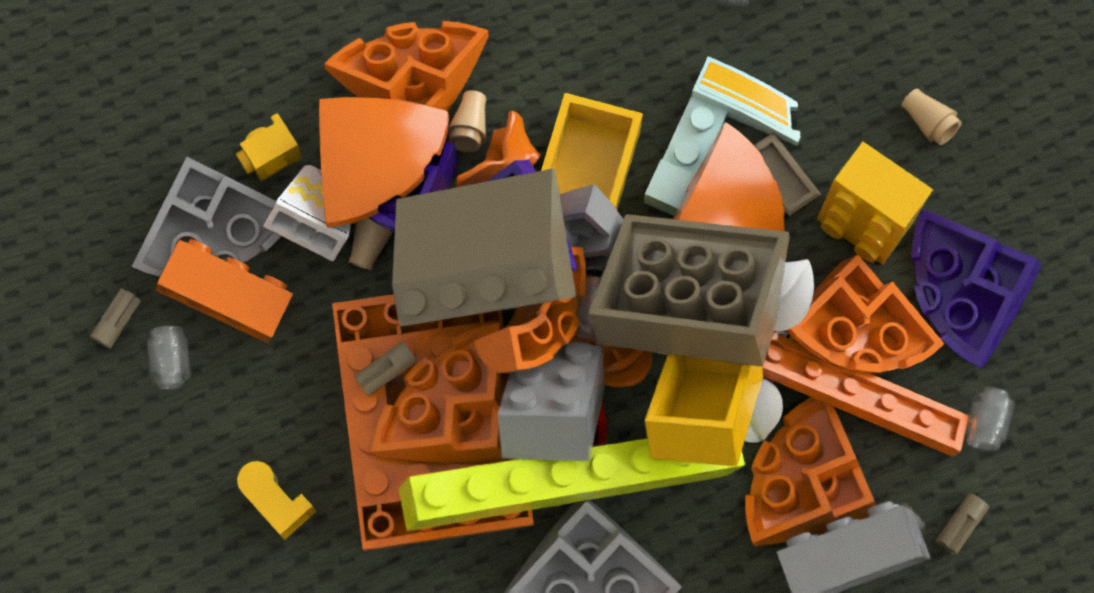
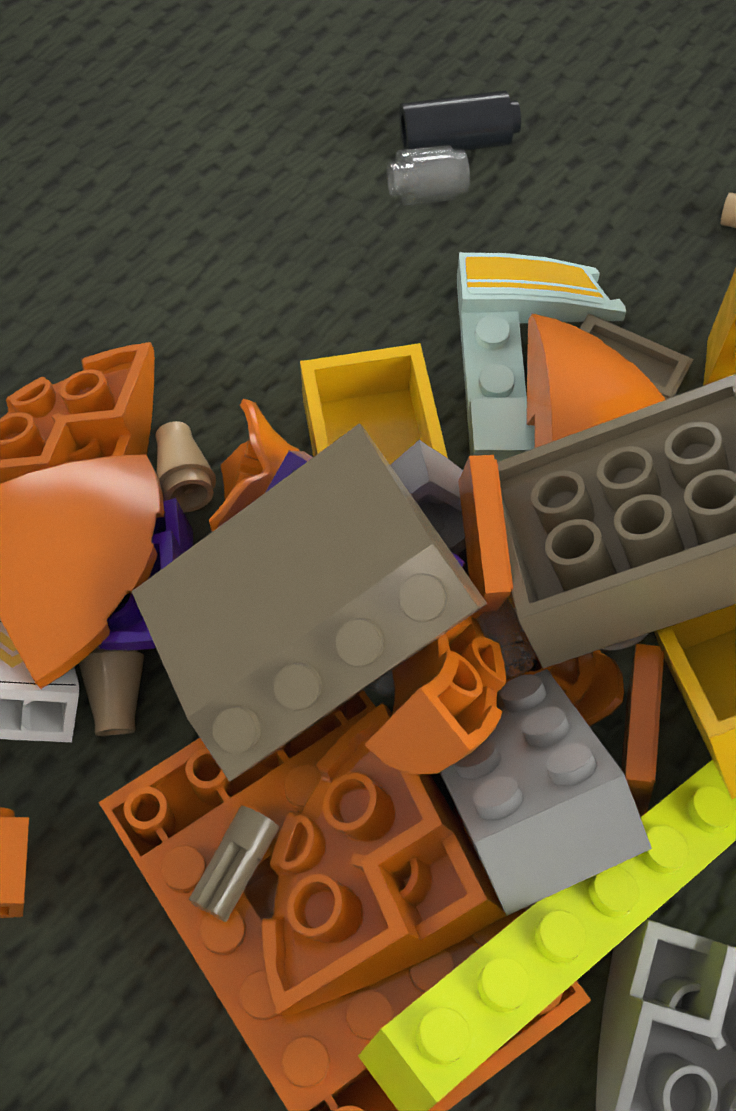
camera: 25 degrees left, 10 degrees down
(600, 256) = (485, 530): none -> orange tile
(630, 416) = (642, 723): none -> orange tile

